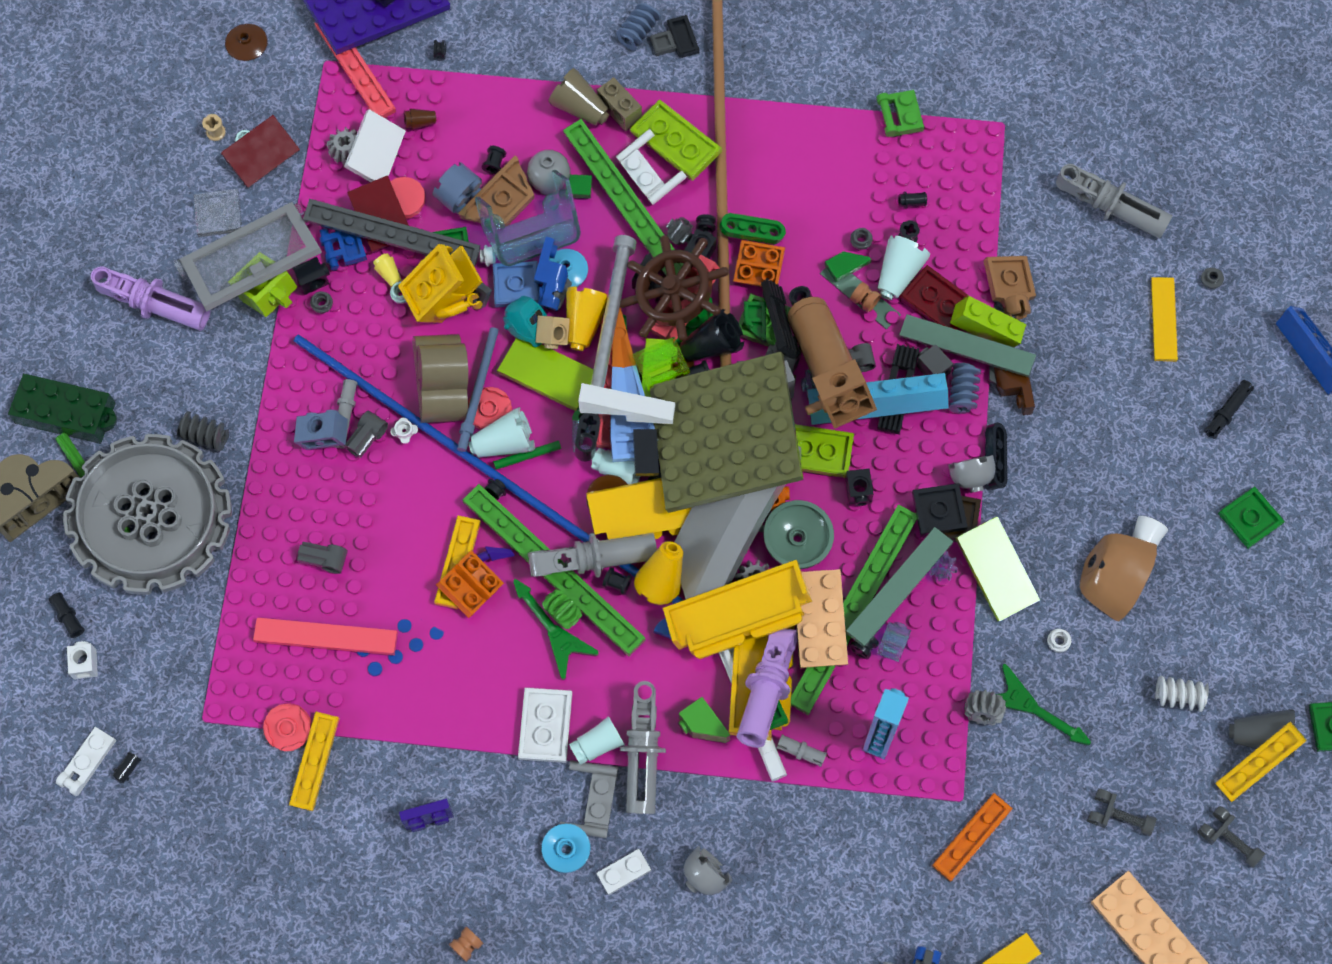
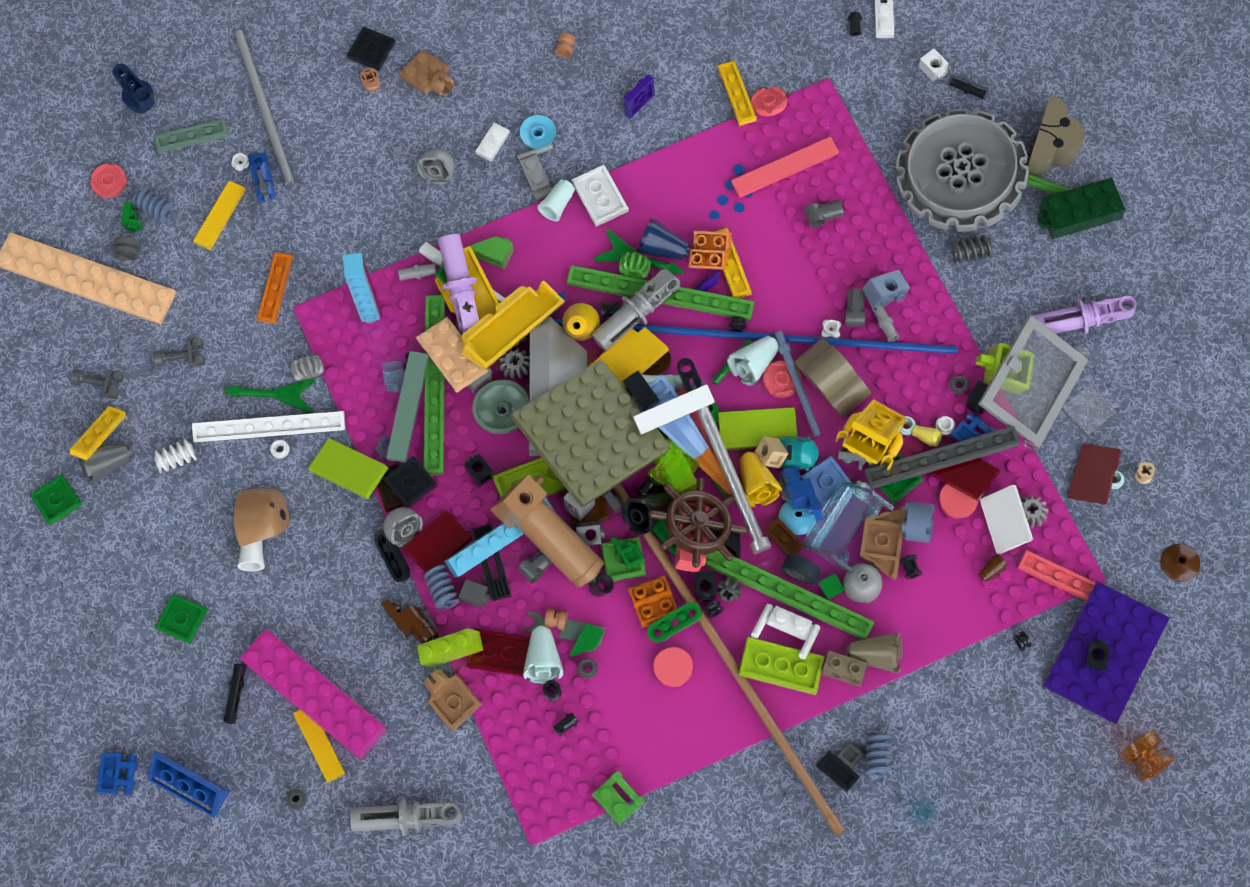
camera: 155 degrees right, 0 degrees up
(364, 271) = (945, 425): none -> white plate
(517, 622) = (662, 242): none -> dark blue cone
(594, 251) = (783, 537): none -> reddish brown plate
(600, 208) = (801, 569): none -> black wheel
(642, 739) = (523, 210): light grey piece -> none
(775, 303) = (588, 533): black container -> none
(777, 196) = (673, 667): none -> coral tile
(943, 440) = (437, 542): none -> dark red tile
(968, 345) = (456, 621): sand green tile -> none
(1061, 670) = (268, 426): none -> white plate
(1149, 362) = (313, 694): none -> dark pink brick

